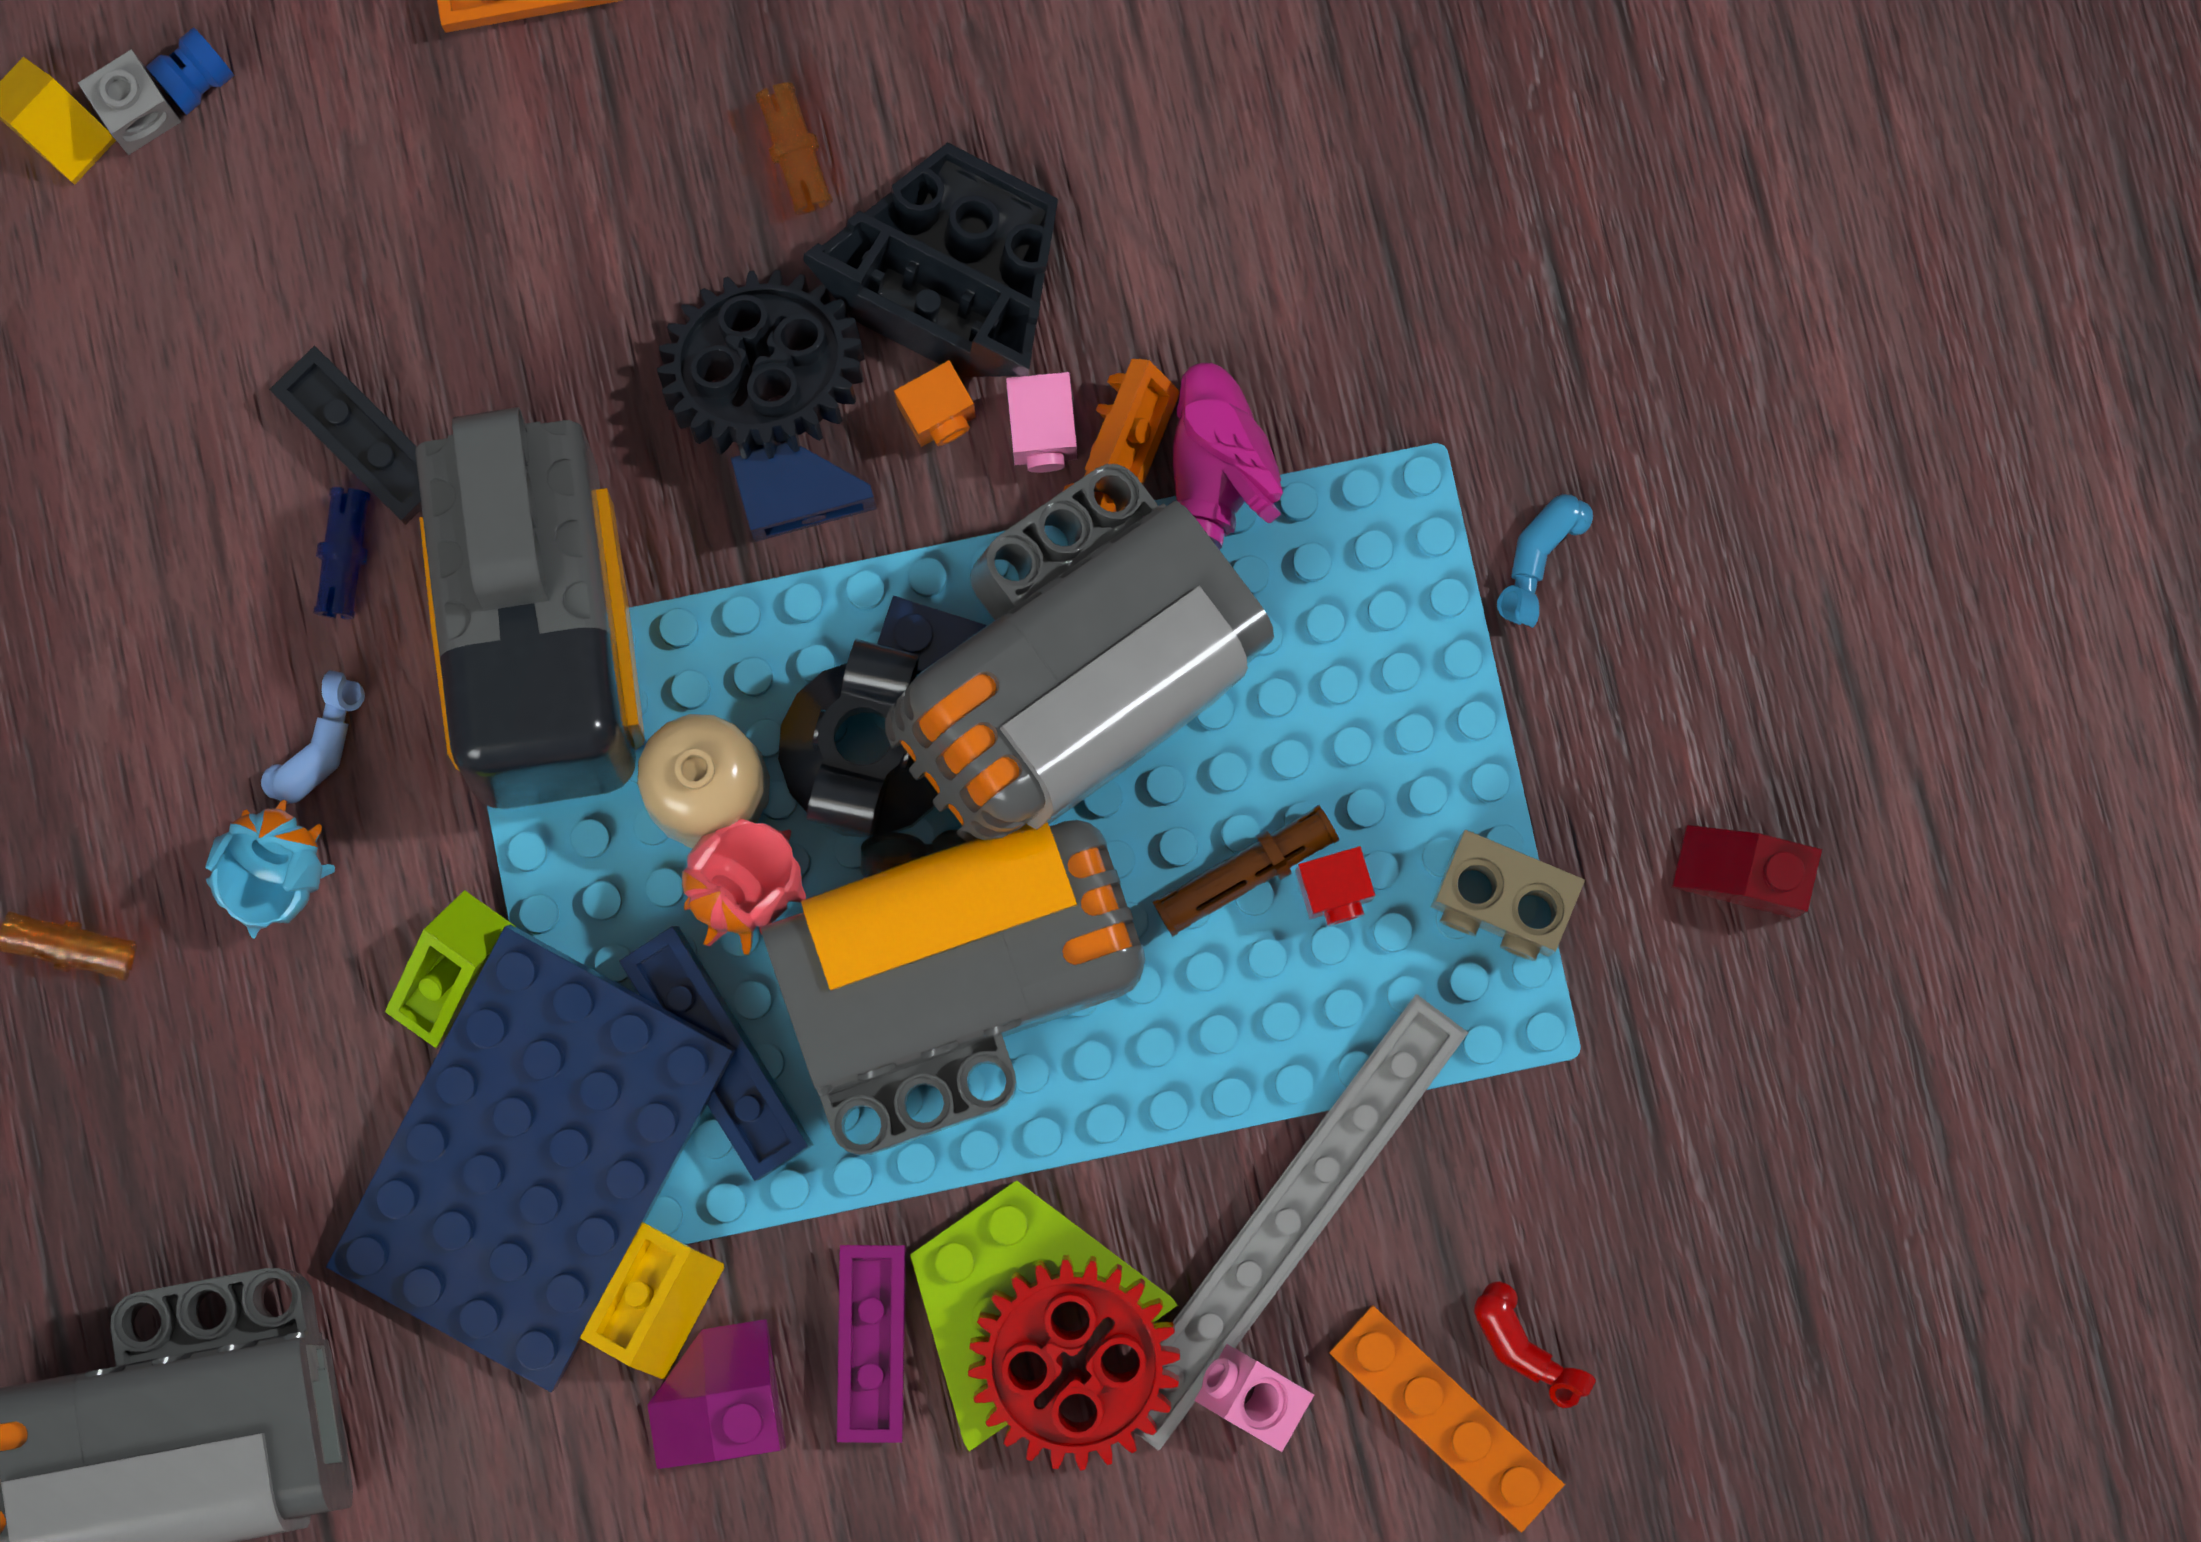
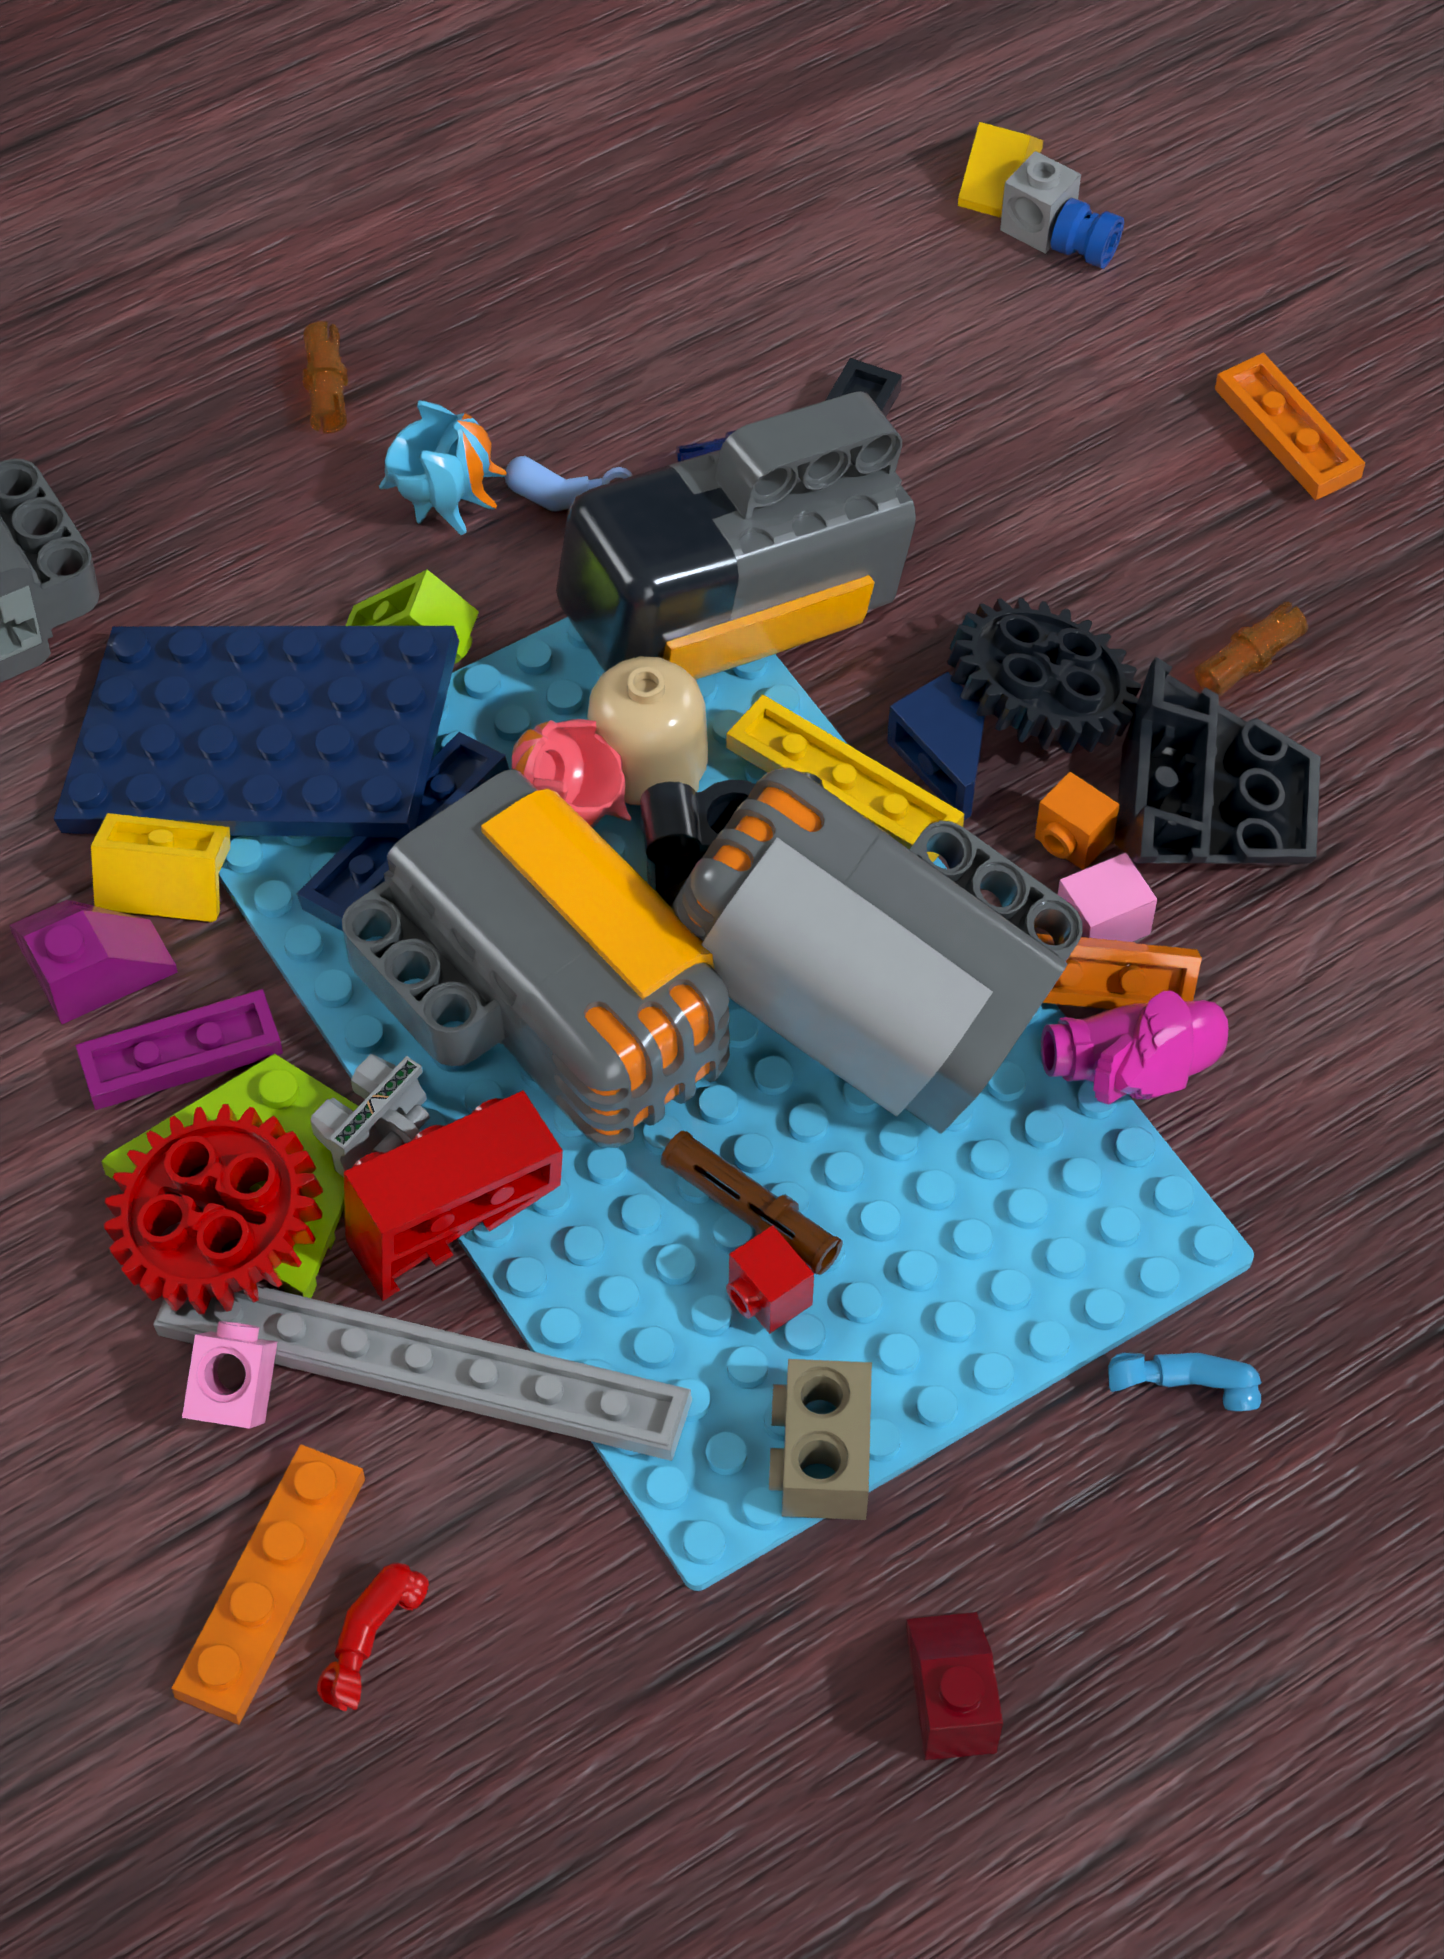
camera: 70 degrees right, 25 degrees down
(814, 607) = (782, 739): none -> yellow plate
(1012, 1160) = (382, 1121): none -> light grey hips
(1140, 1138) = (445, 1184): none -> red wedge

